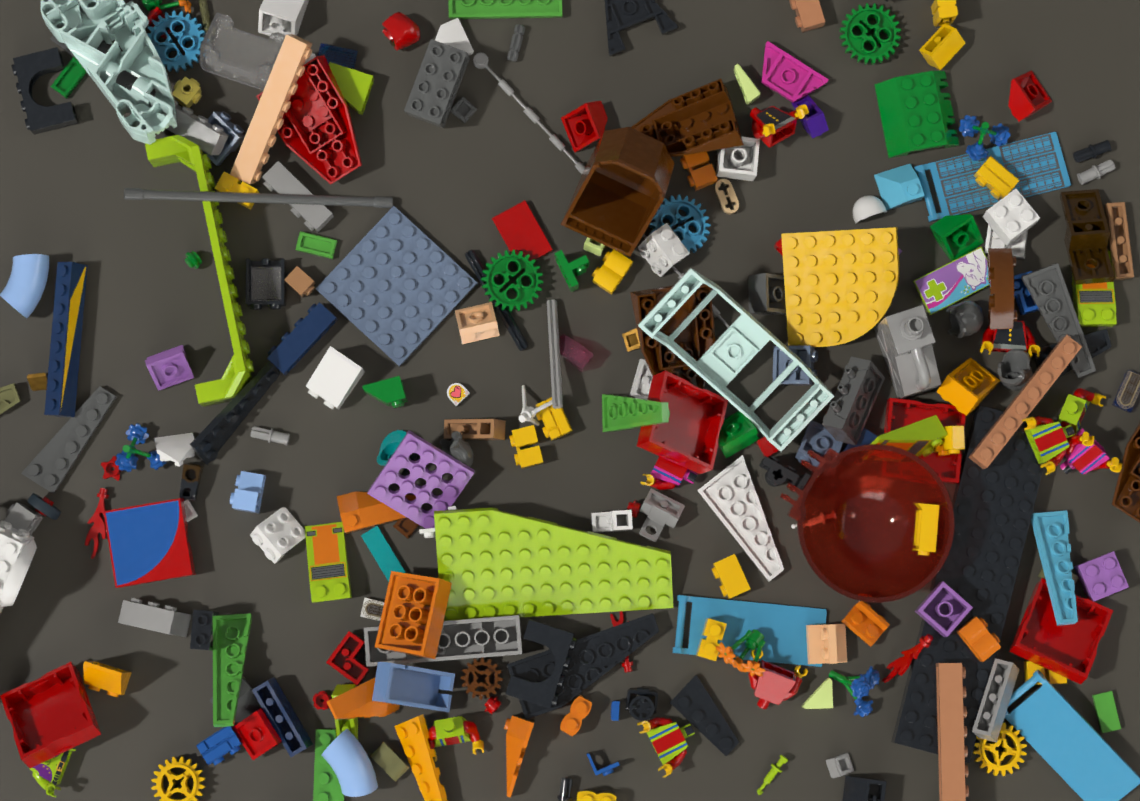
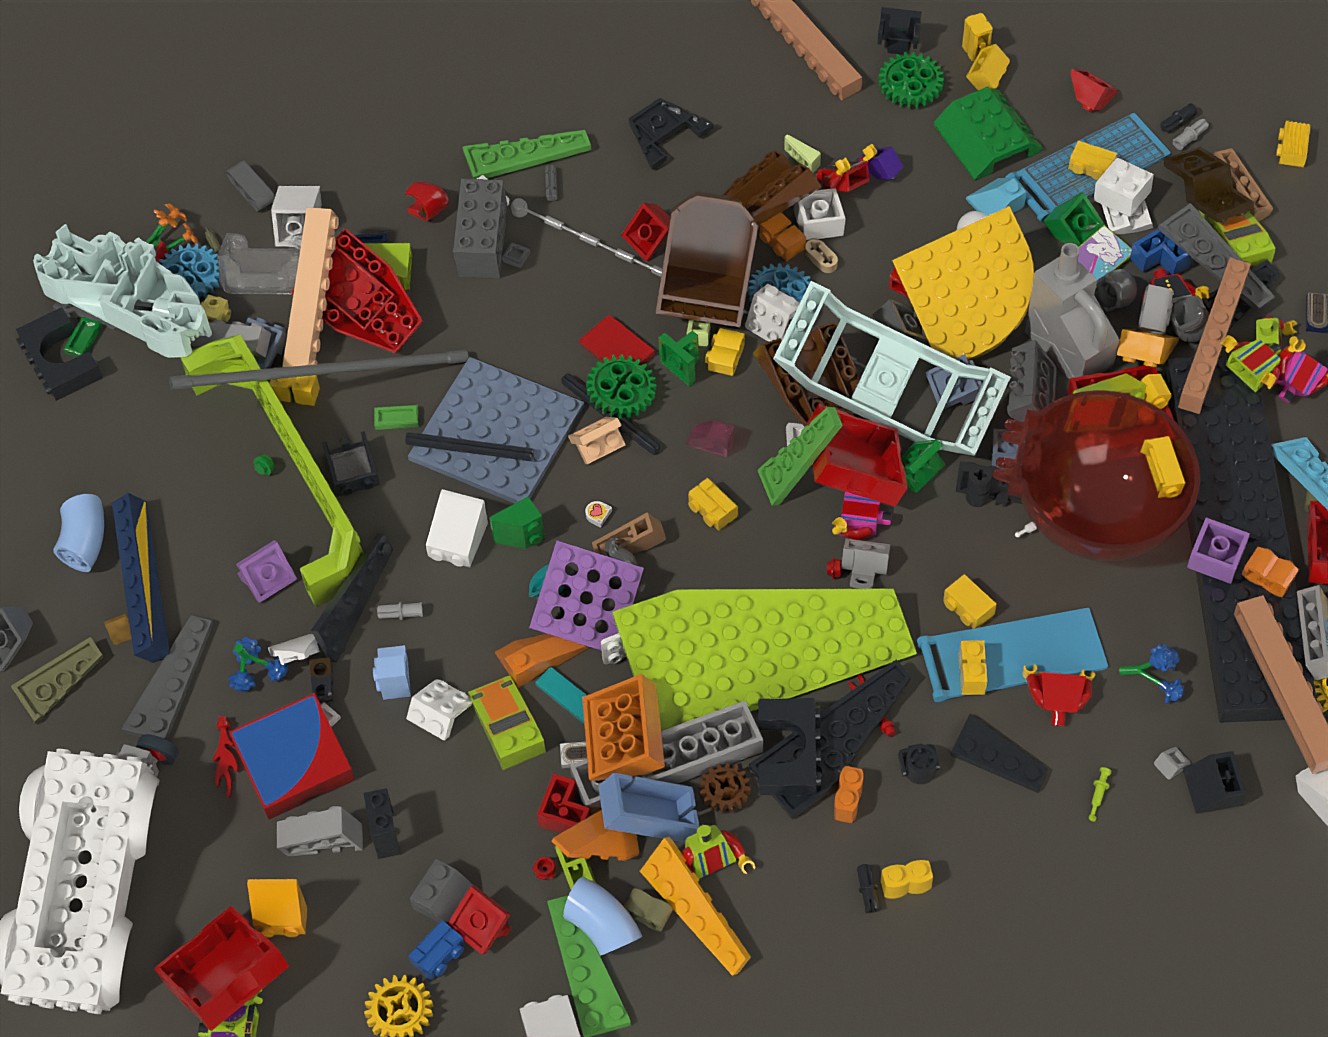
camera: 10 degrees left, 25 degrees down
(107, 468) = (223, 693): red plate -> none
(229, 655) = (420, 846): bright green wing -> none
(282, 717) = (504, 894): dark blue brick -> none
(283, 182) = (379, 384): light grey brick -> none
(300, 282) = (389, 452): medium nougat brick -> none
(302, 338) = (408, 504): dark blue brick -> none
(367, 300) = (469, 446): none -> black axle
(405, 526) = (584, 660): reddish brown tile -> none
(492, 705) = (747, 813): red plate -> none
(516, 743) = (789, 841): orange wedge -> none
(525, 437) = (694, 544): yellow piece -> none
(529, 412) = (685, 498): white plant -> none
(554, 349) = (692, 440): light grey axle -> none
(605, 770) = (904, 843): blue bracket -> none
(612, 521) = (822, 576): white brick -> none
(615, 710) = (891, 777): blue tile -> none
(631, 340) = (774, 409): pearl gold slope -> none
(667, 741) = (963, 789): torso -> none
(739, 509) = (952, 536): white wing -> none
(754, 640) = (1021, 654): plant -> none
(766, 447) = (952, 465): red tile -> none
(788, 75) = (843, 135): dark pink wing -> none
(821, 697) = (1122, 696): yellowish green slope -> none
(826, 643) = (1103, 638): light nougat bracket -> none
(865, 622) = (1138, 604): orange bracket -> none
(901, 664) = (1197, 631): red piece -> none
(985, 360) = (1155, 309): none -> light grey piece
(998, 135) = (1078, 129): blue plant -> none
(1001, 280) = (1149, 256): reddish brown brick -> none

